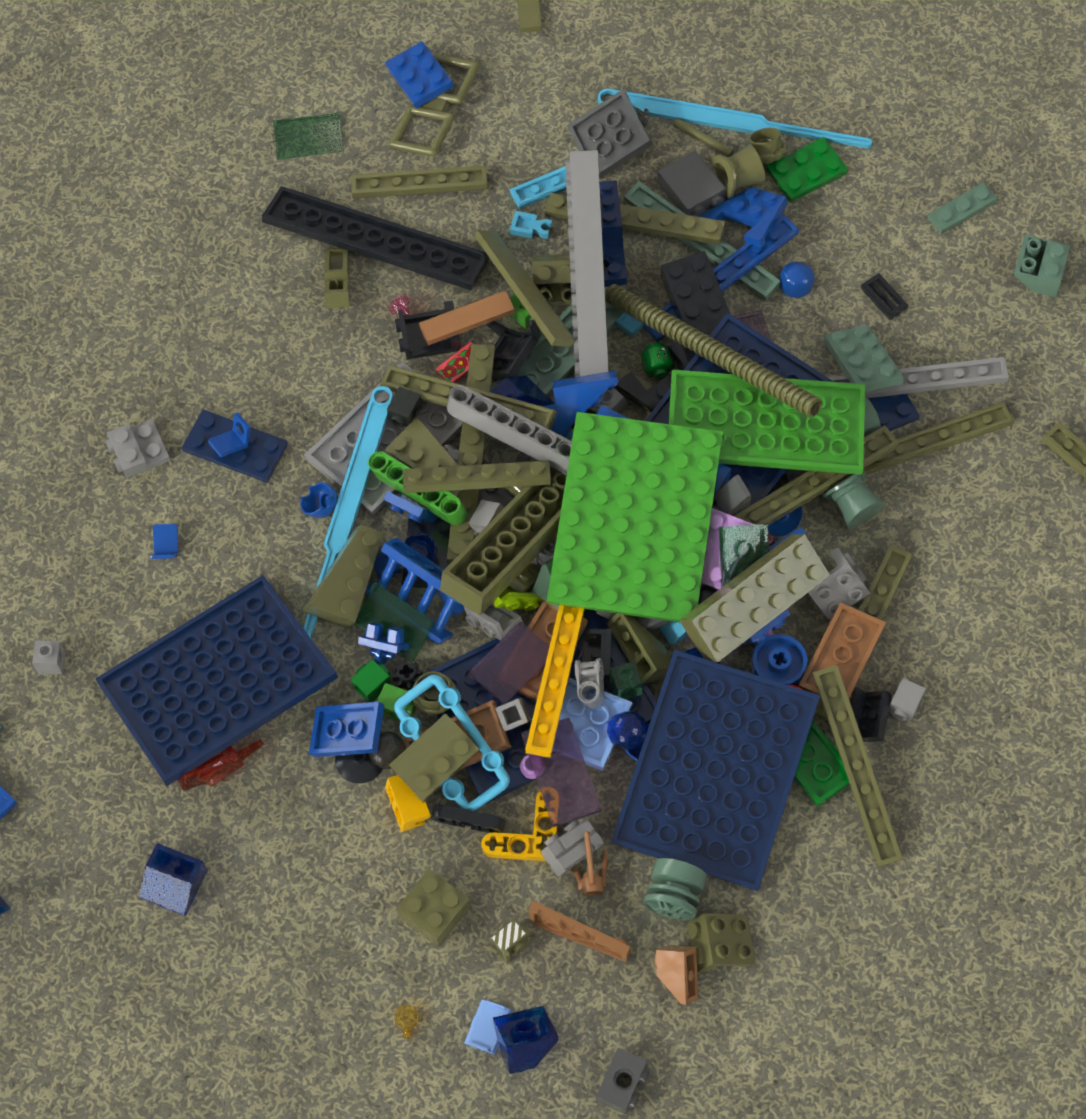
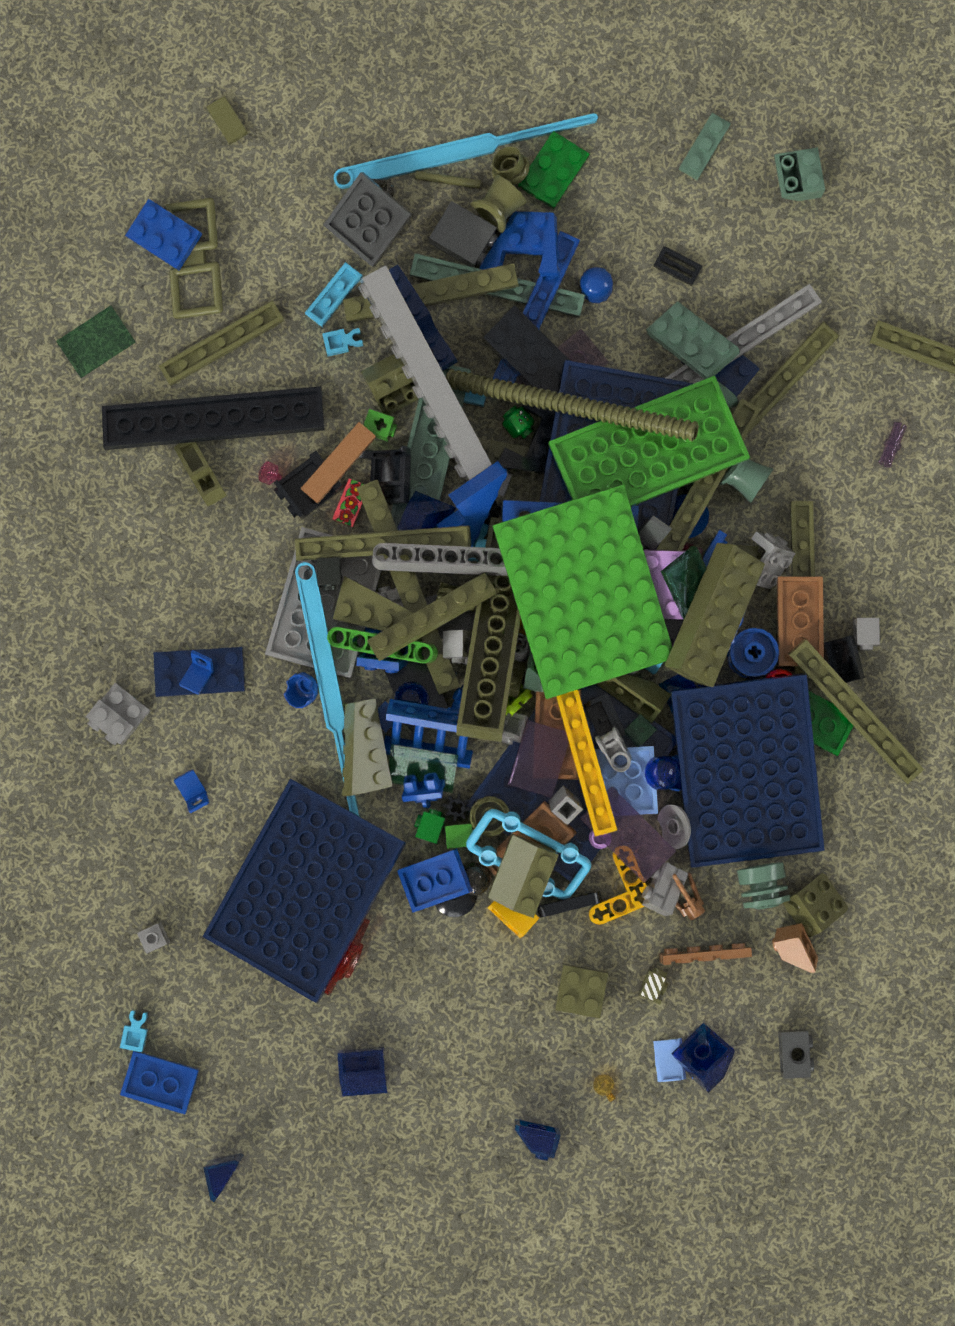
camera: 30 degrees left, 20 degrees up
(310, 1033) = (538, 1138): none -> clear blue slope
(524, 288) = (374, 412): olive tile -> none
(614, 791) = (674, 825): none -> light grey dish
(1020, 540) = (892, 444): none -> clear purple pin

